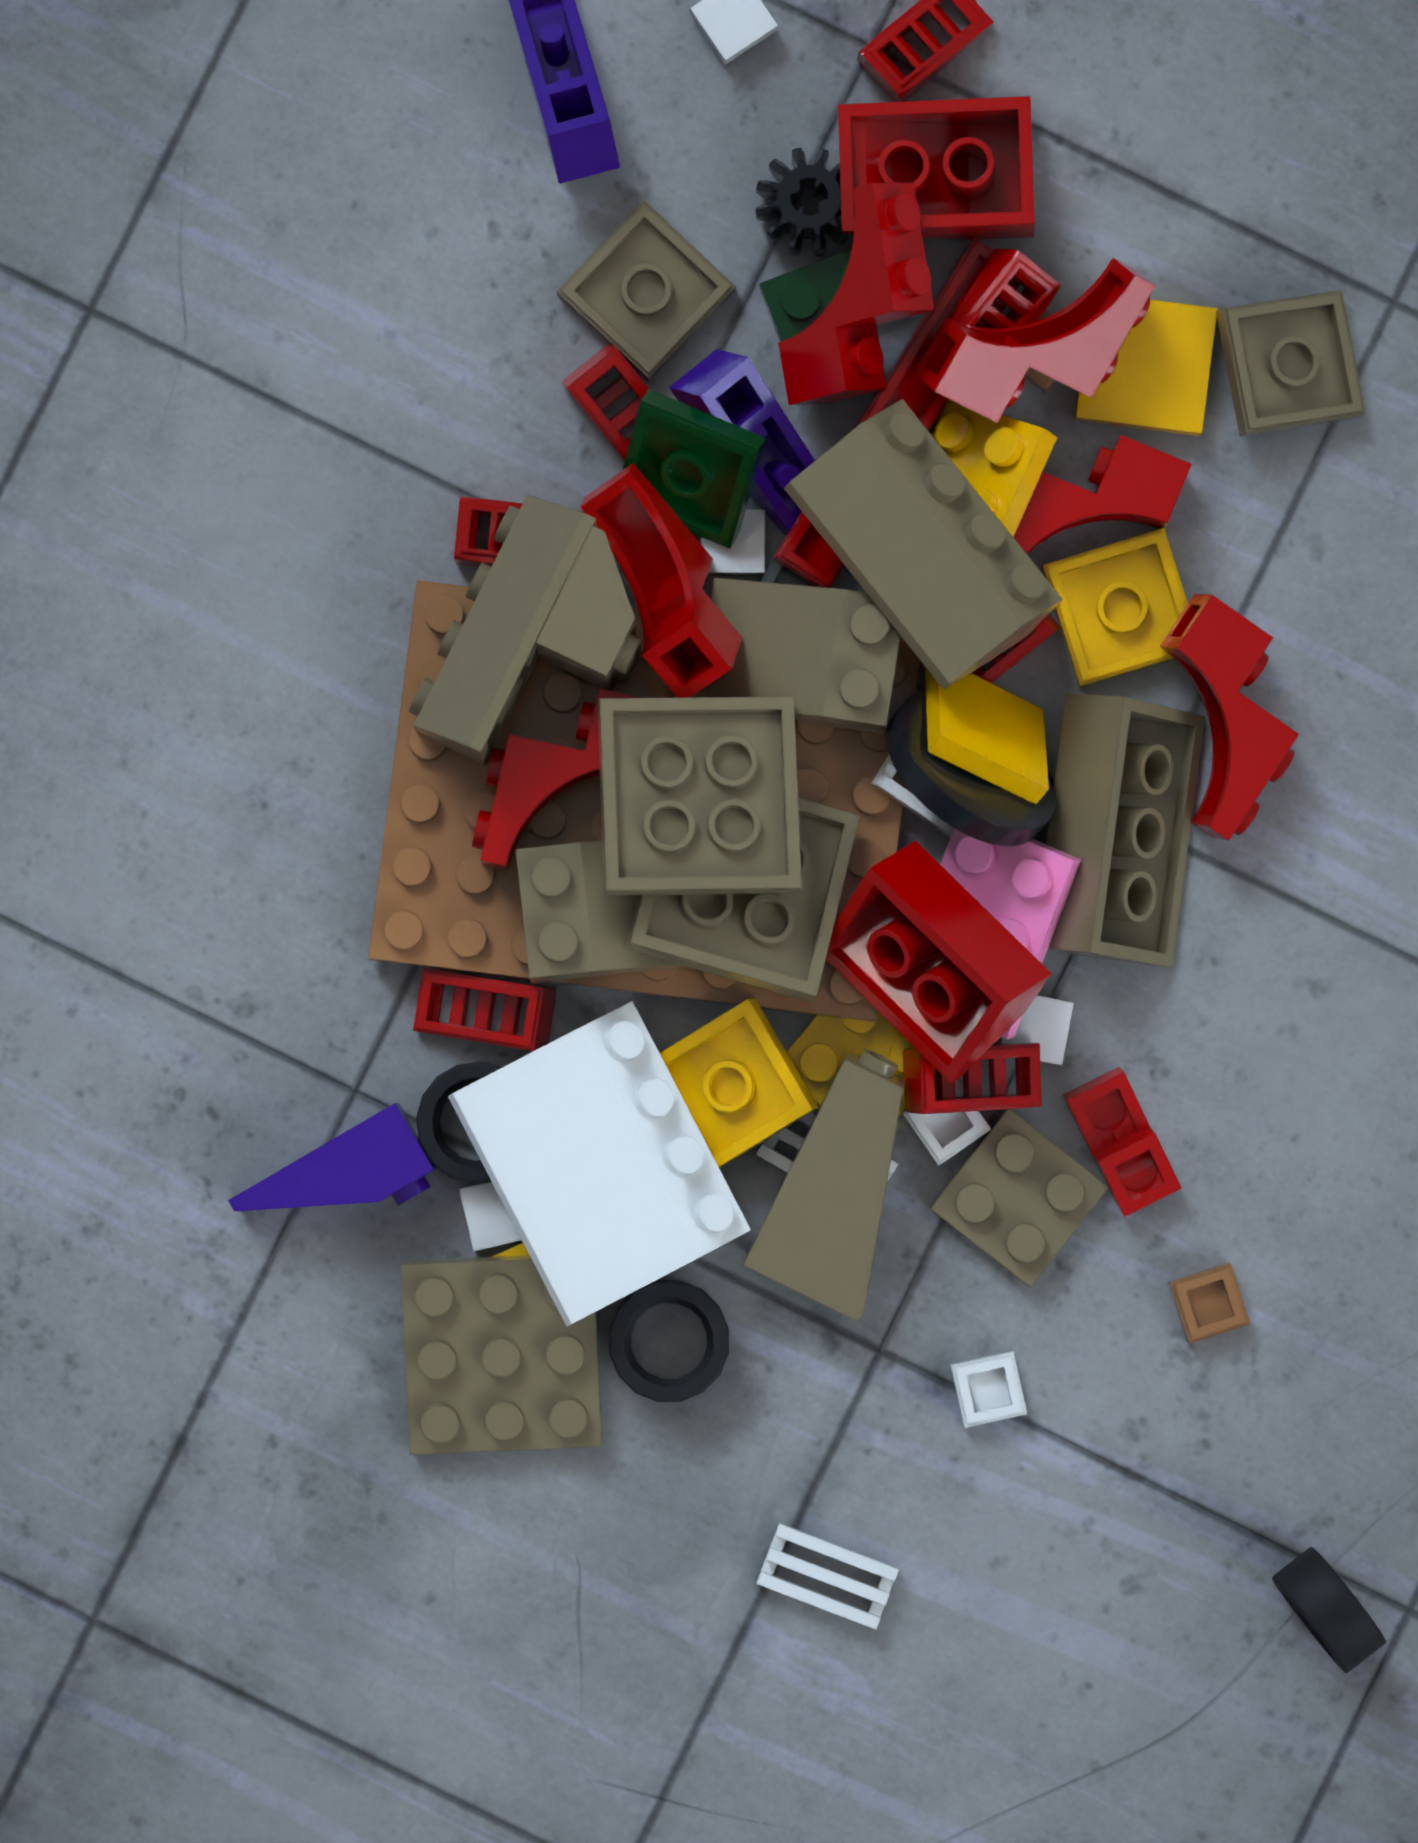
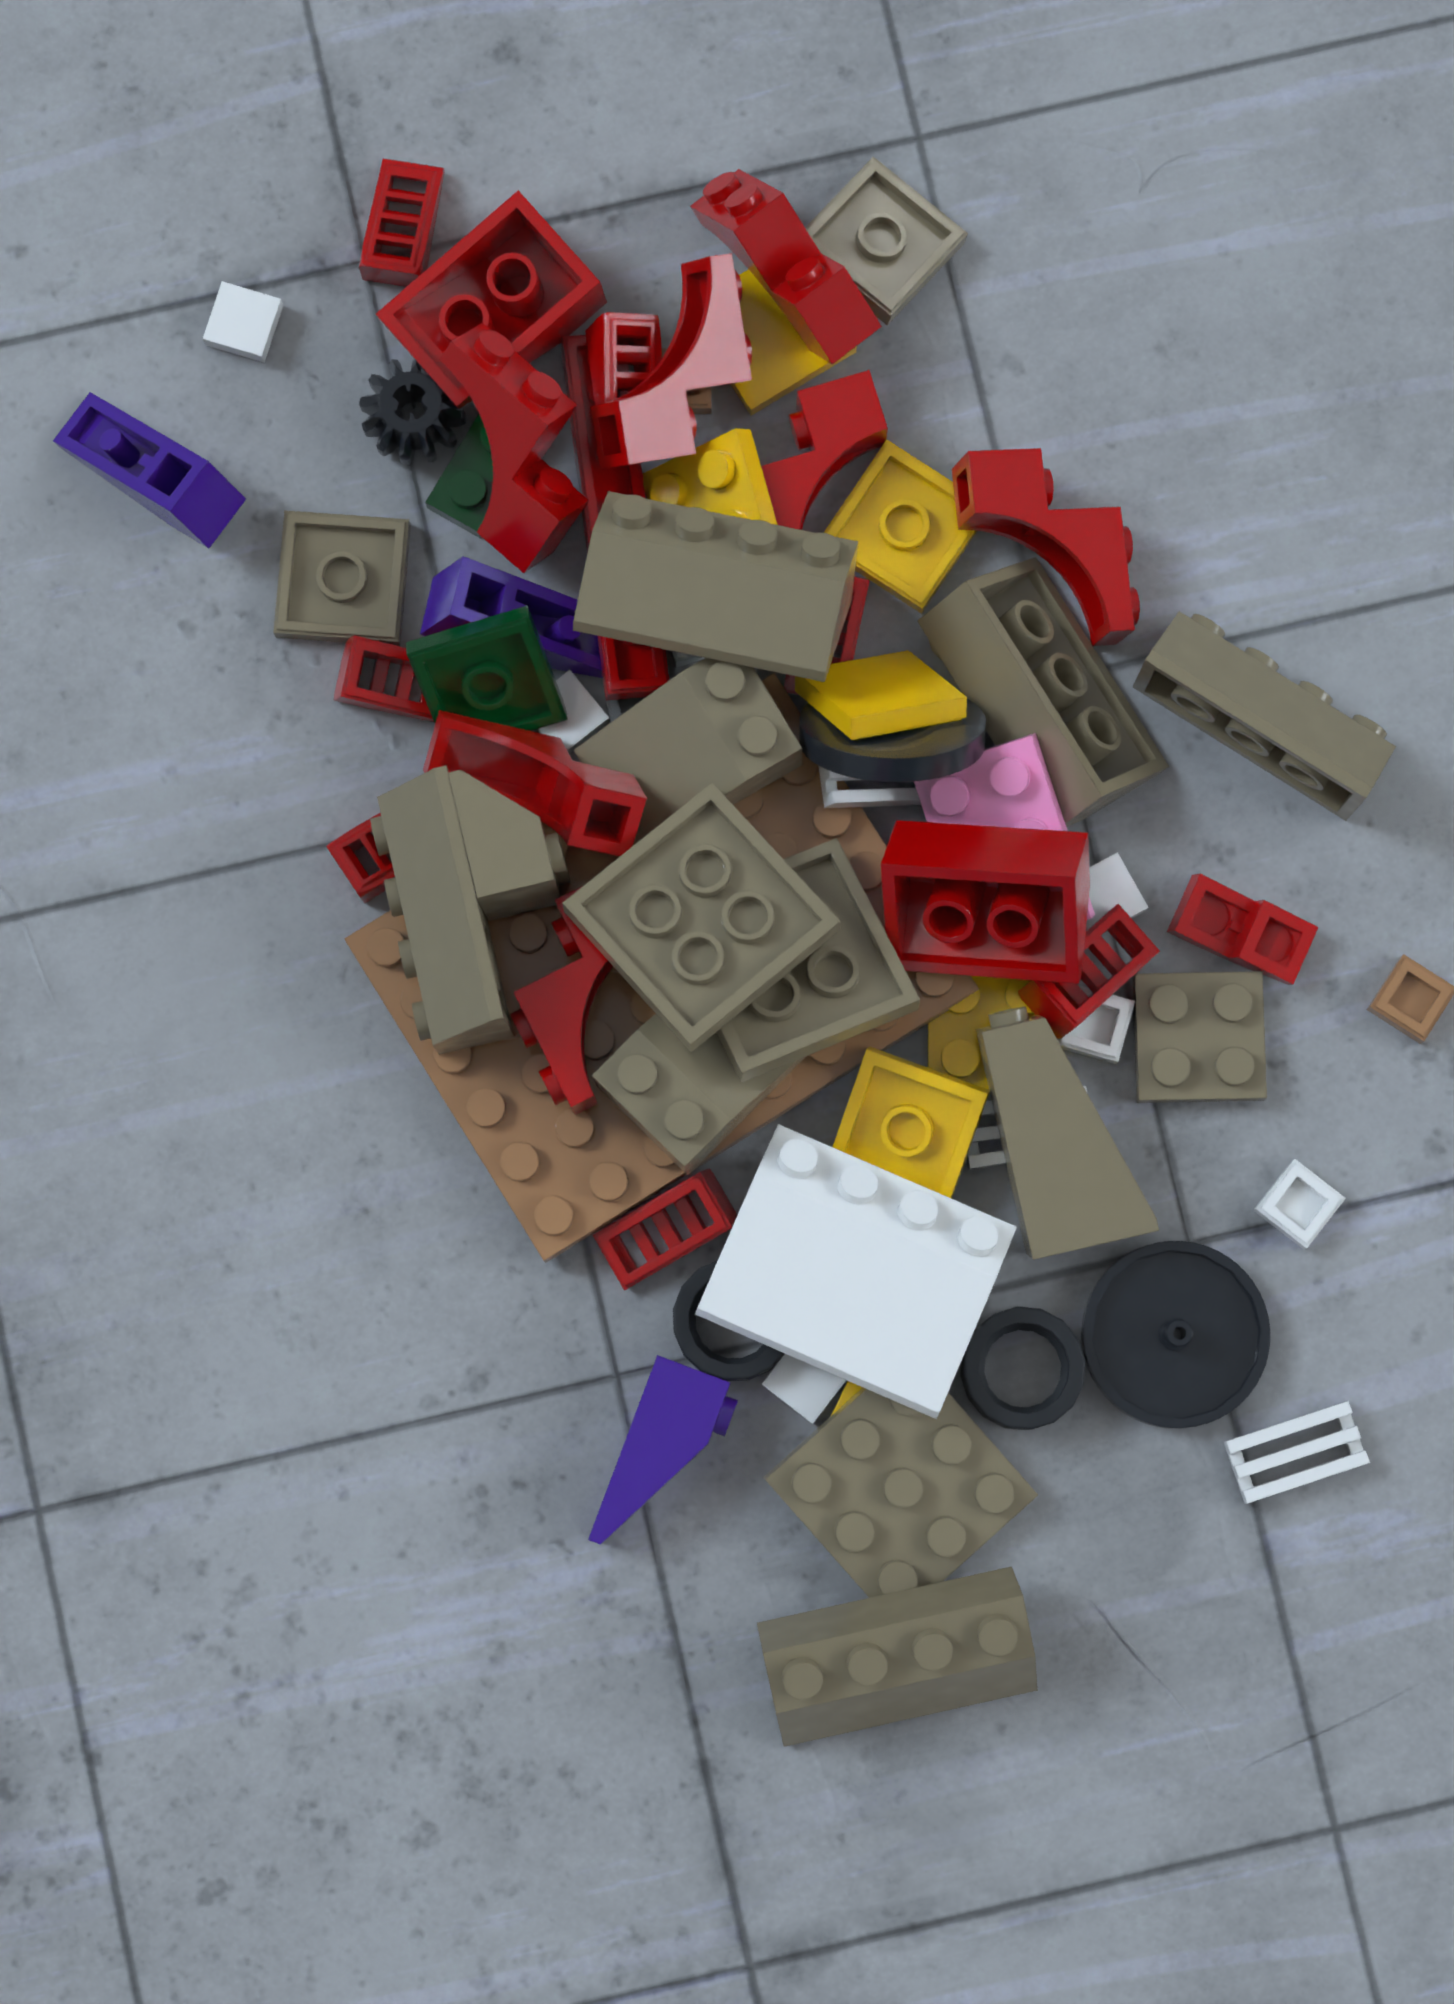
camera: 30 degrees left, 5 degrees down
(392, 1479) = (899, 1656): none -> dark tan slope
(809, 1411) = (1175, 1334): none -> black piece
(1197, 324) = (782, 256): none -> red arch
(1278, 989) = (1265, 715): none -> dark tan slope

